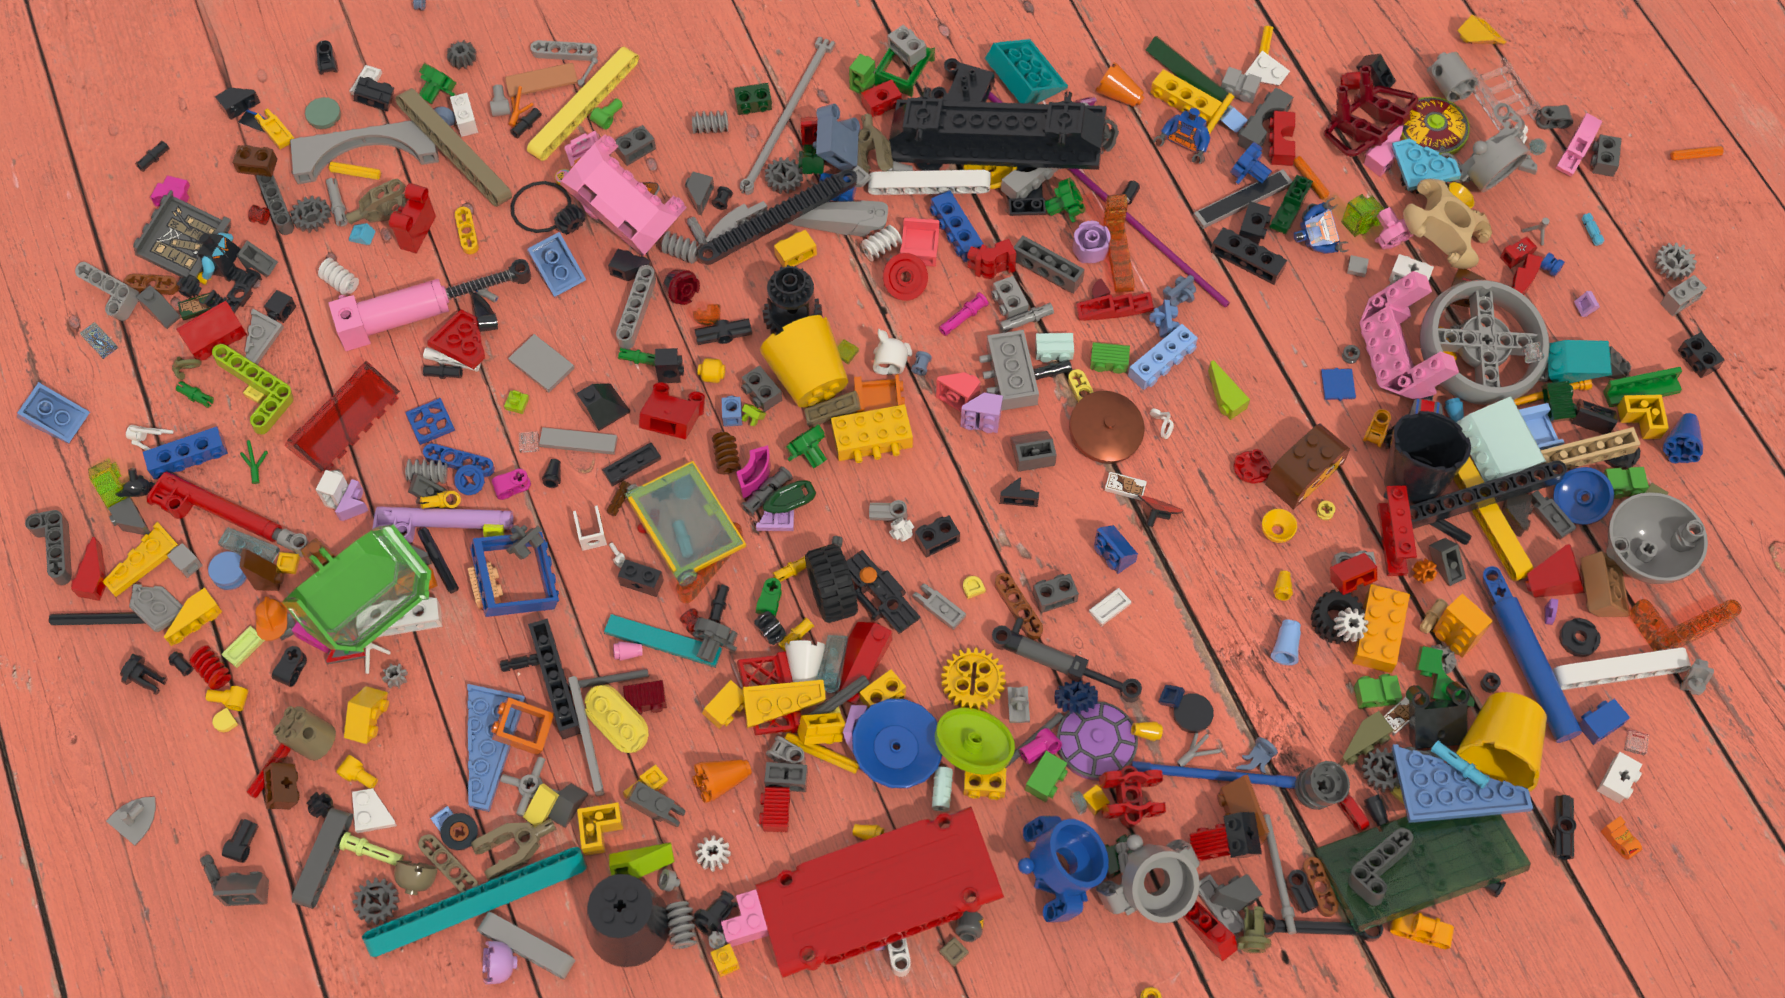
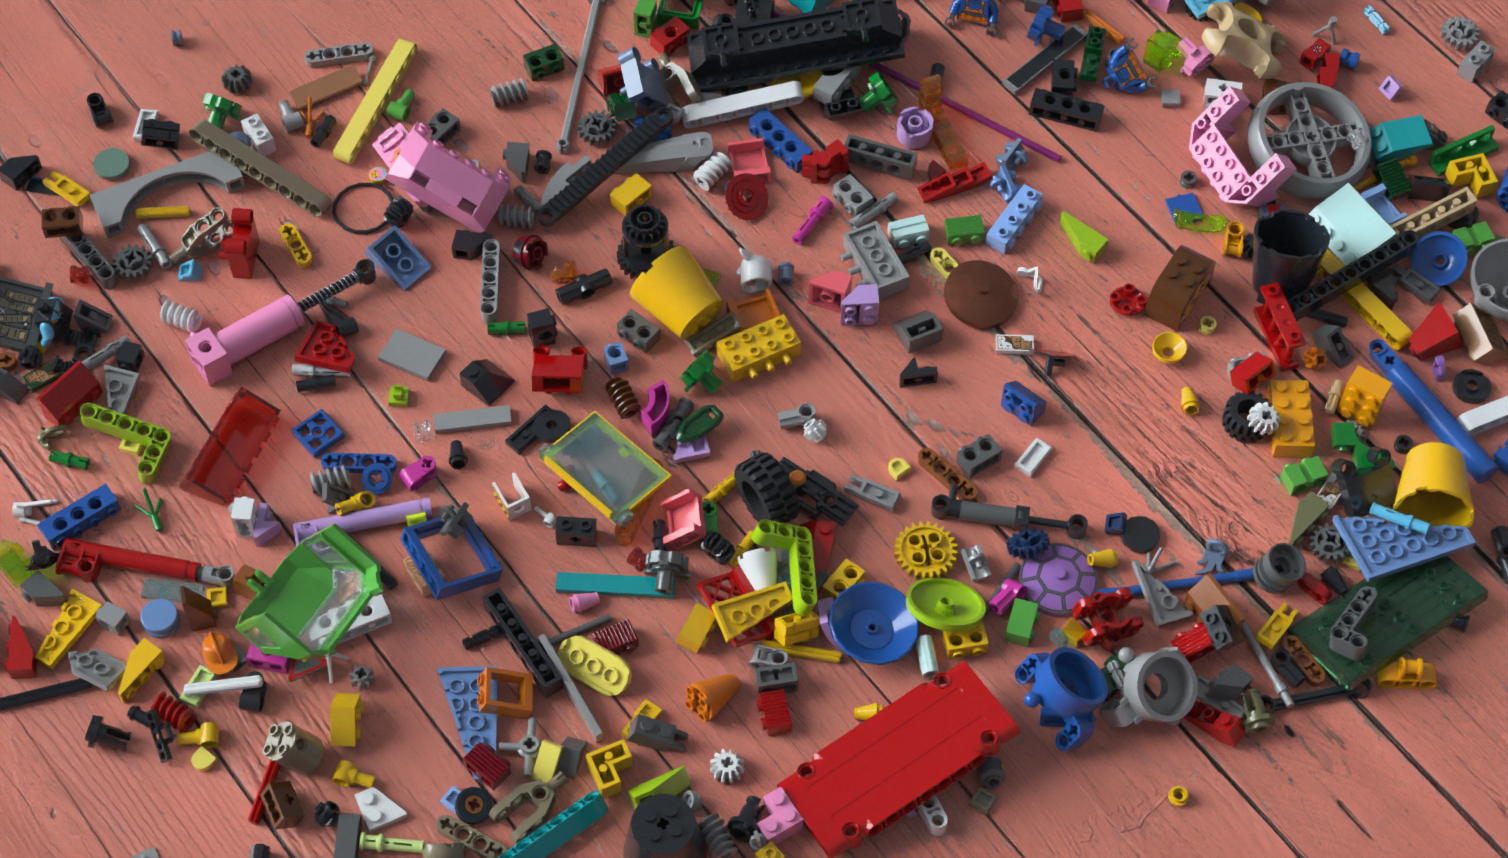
camera: 15 degrees left, 5 degrees down
(188, 679) = (161, 743): none -> black piece
(254, 299) = (109, 351): none -> light grey pin
(261, 653) = (223, 685): none -> white axle
(482, 796) = (487, 765): none -> dark red brick
(618, 499) = (530, 463): reddish brown axle -> none
(645, 458) = (548, 418): none -> black tile
(711, 370) = (584, 324): yellow head -> none
(747, 591) = (684, 518): none -> coral panel
(753, 412) = (637, 355): lime tile -> none
(847, 666) = (798, 543): none -> lime beam
(939, 539) = (853, 431): black brick -> none
(1193, 793) = (1161, 603): none -> light grey wing
(1287, 643) = (1209, 452): light blue plant -> none
(1302, 845) = (1276, 626): none -> yellow hinge
(1359, 406) = (1210, 224): none -> clear neon green piece
(1454, 409) = (1298, 204): dark azure cone -> none

